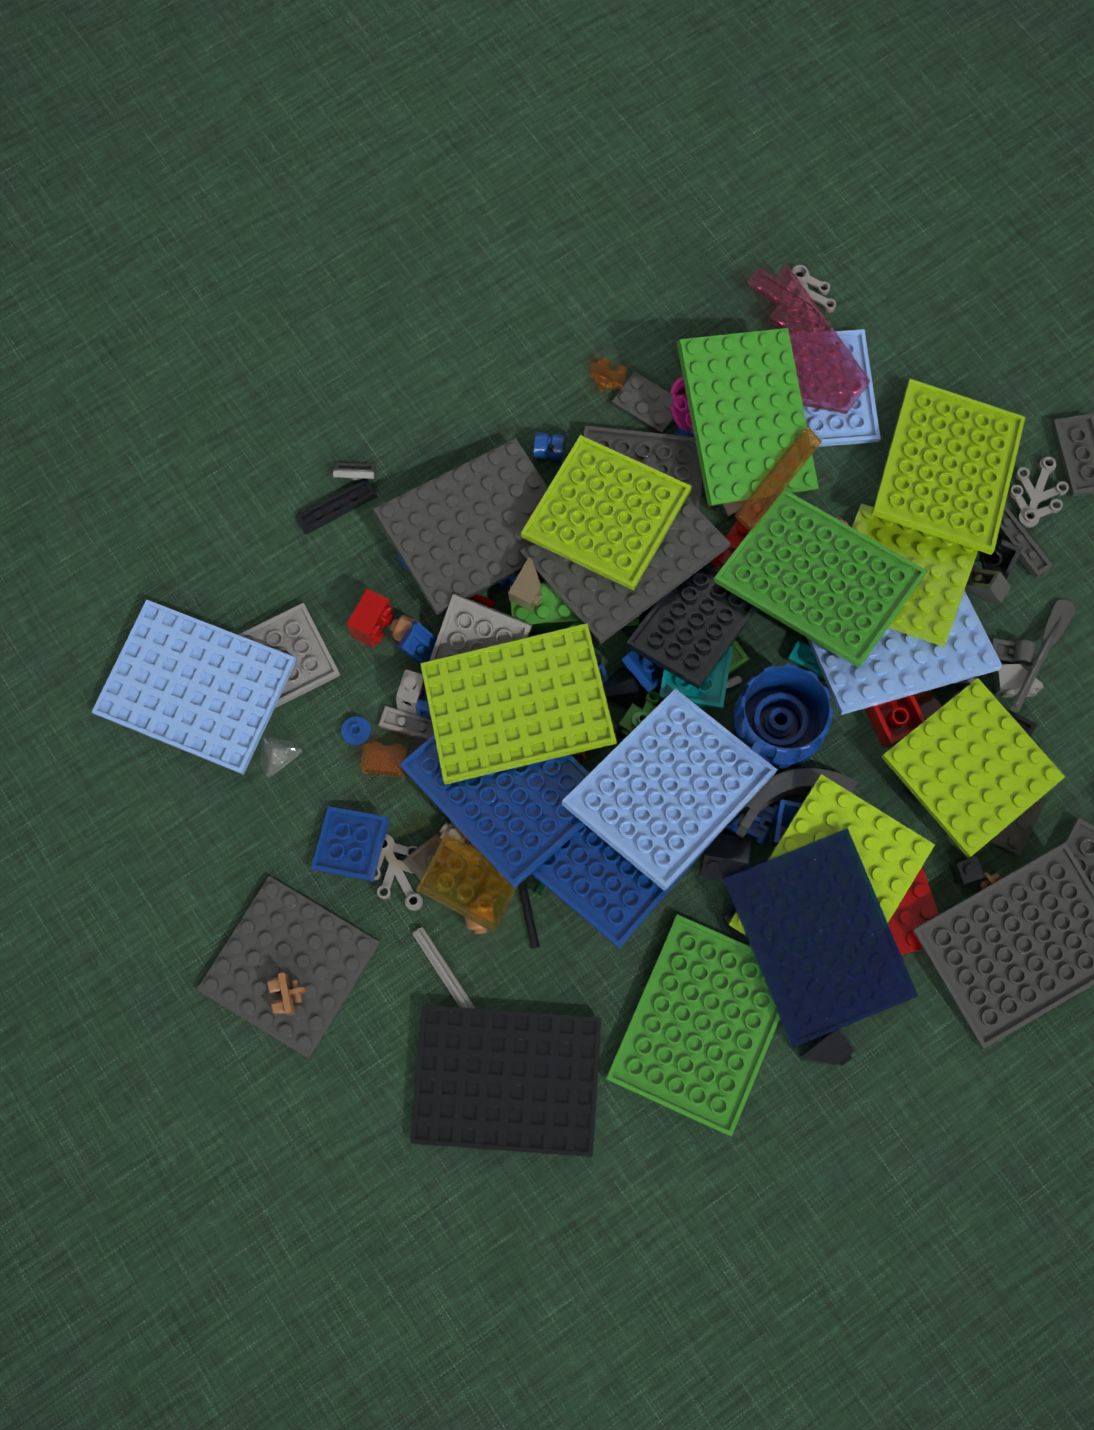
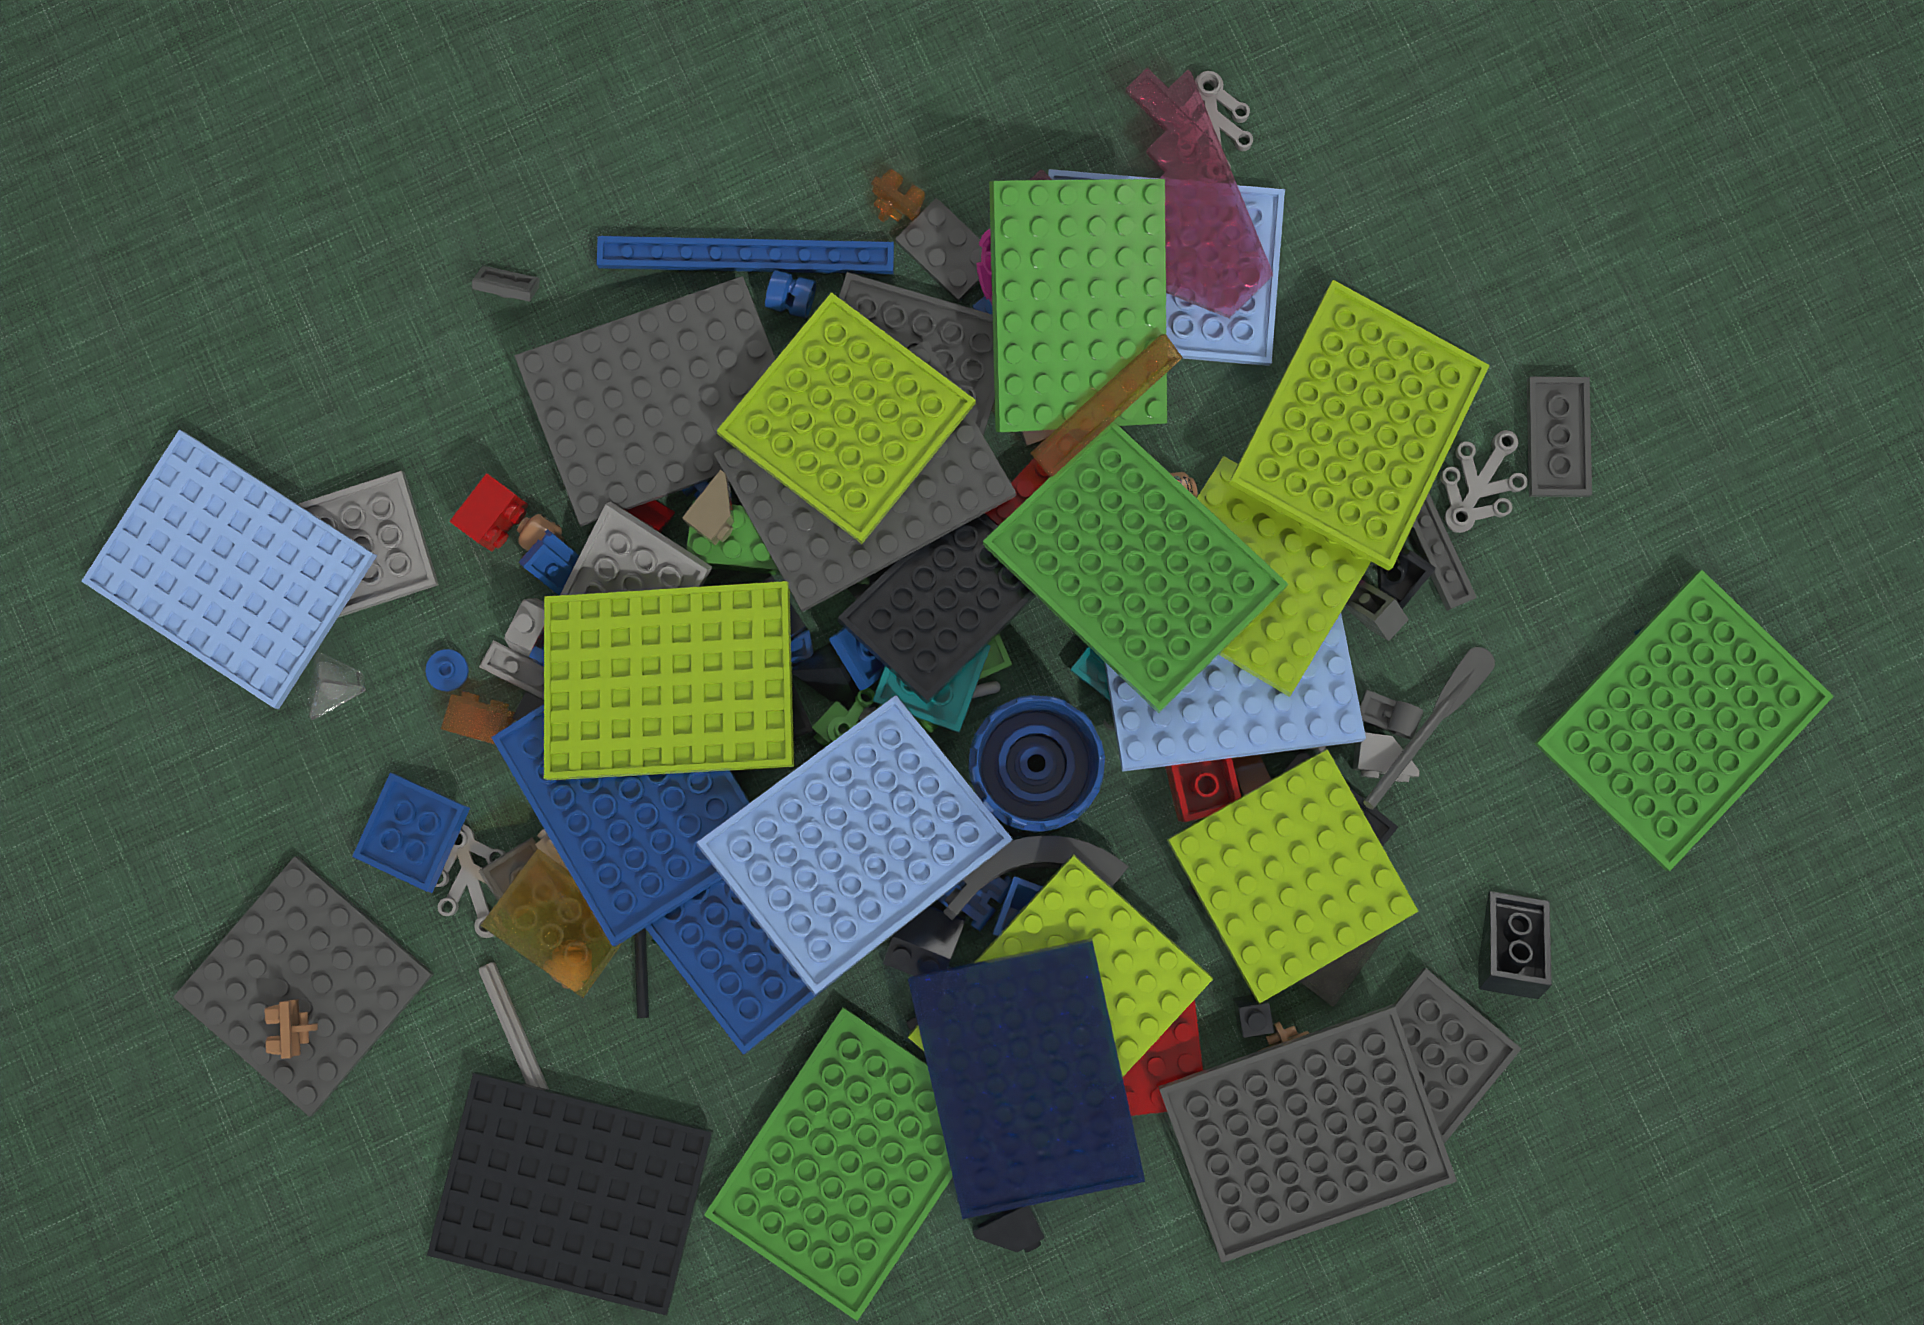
camera: 10 degrees right, 10 degrees up
(336, 506) = (471, 331): black tile -> none
(513, 427) = (745, 255): none -> blue plate

